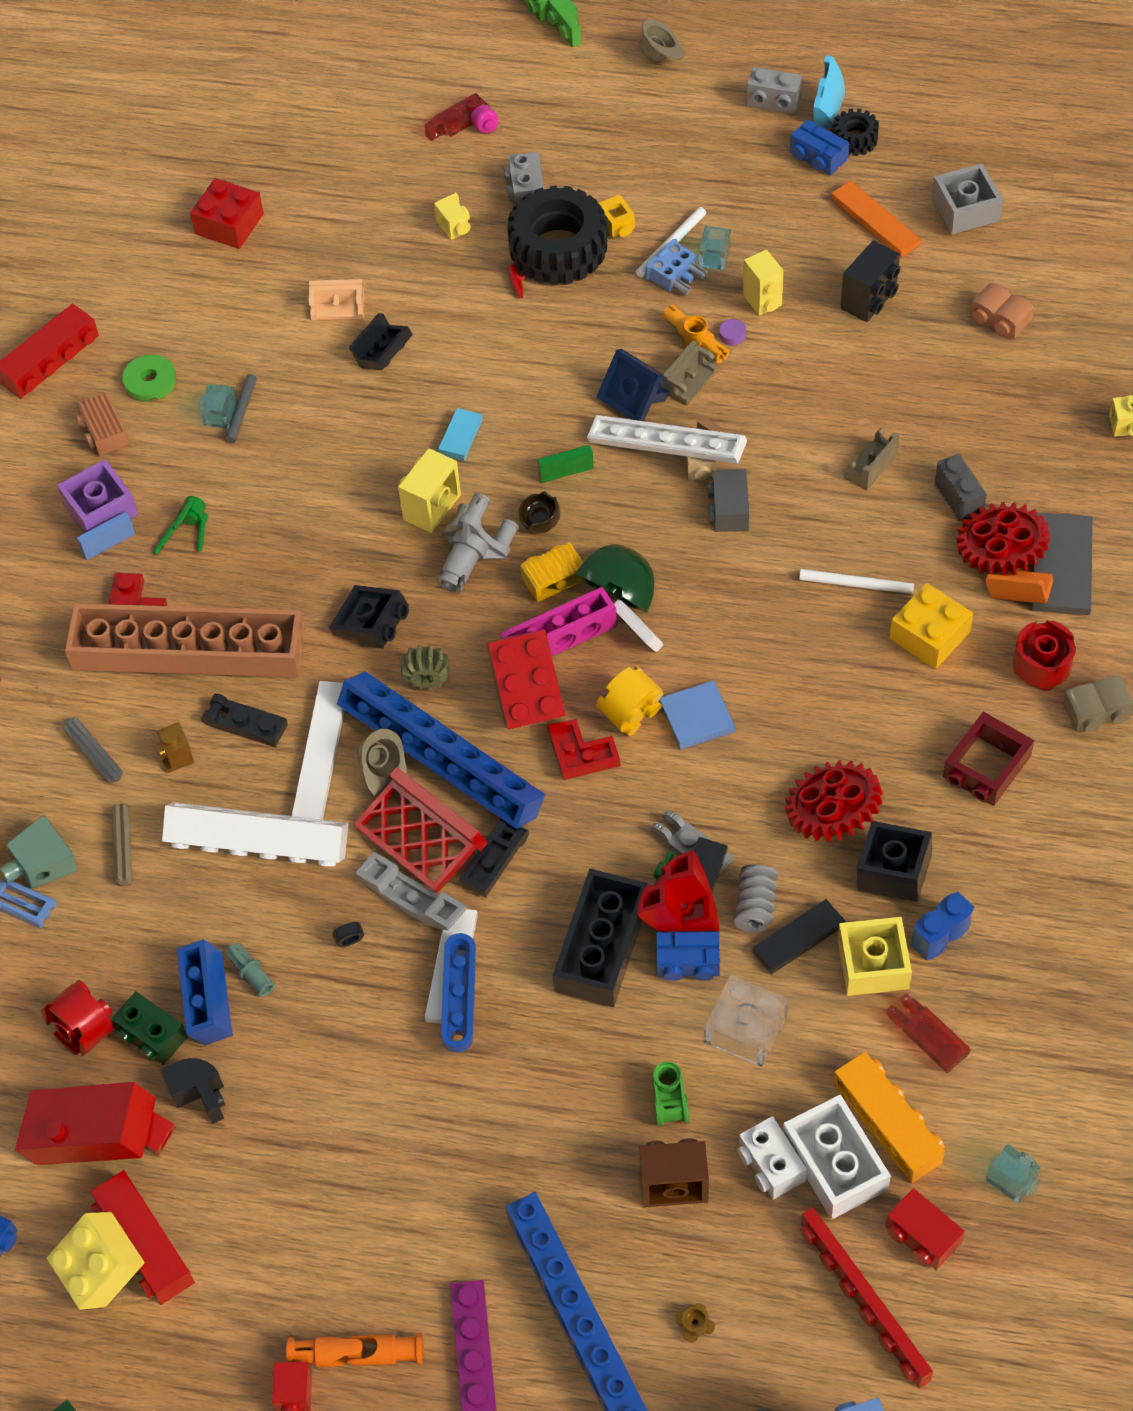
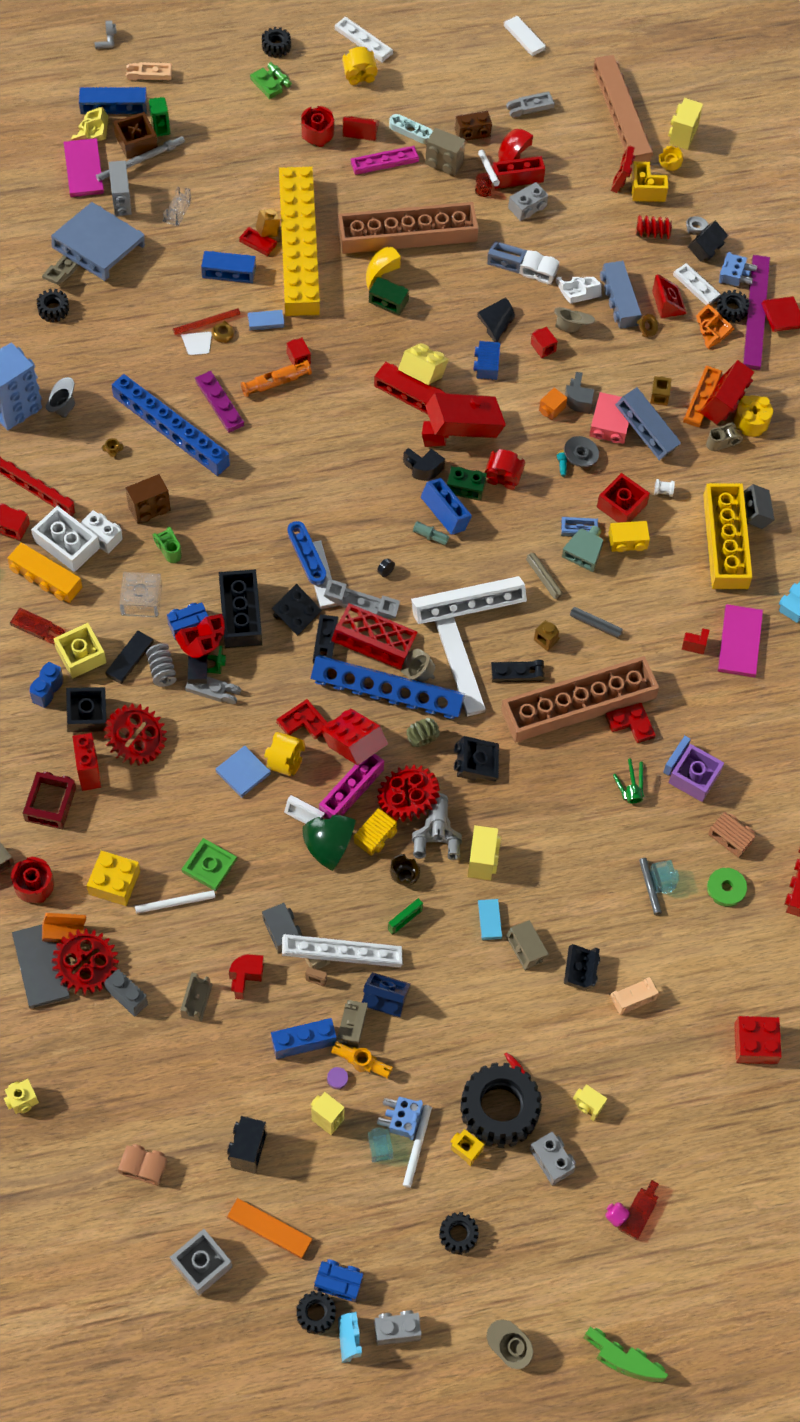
camera: 150 degrees right, 5 degrees up
(432, 387) = (526, 944): none -> dark tan hinge
(461, 588) = (422, 793): none -> red gear
(514, 917) = (296, 609): none -> black hinge
(666, 161) = (461, 1220): none -> black tyre
(756, 372) = (303, 1038): none -> blue brick
(793, 606) = (209, 864): none -> bright green plate
(796, 469) = (245, 968): none -> red brick
(919, 774) = (86, 761): none -> red window

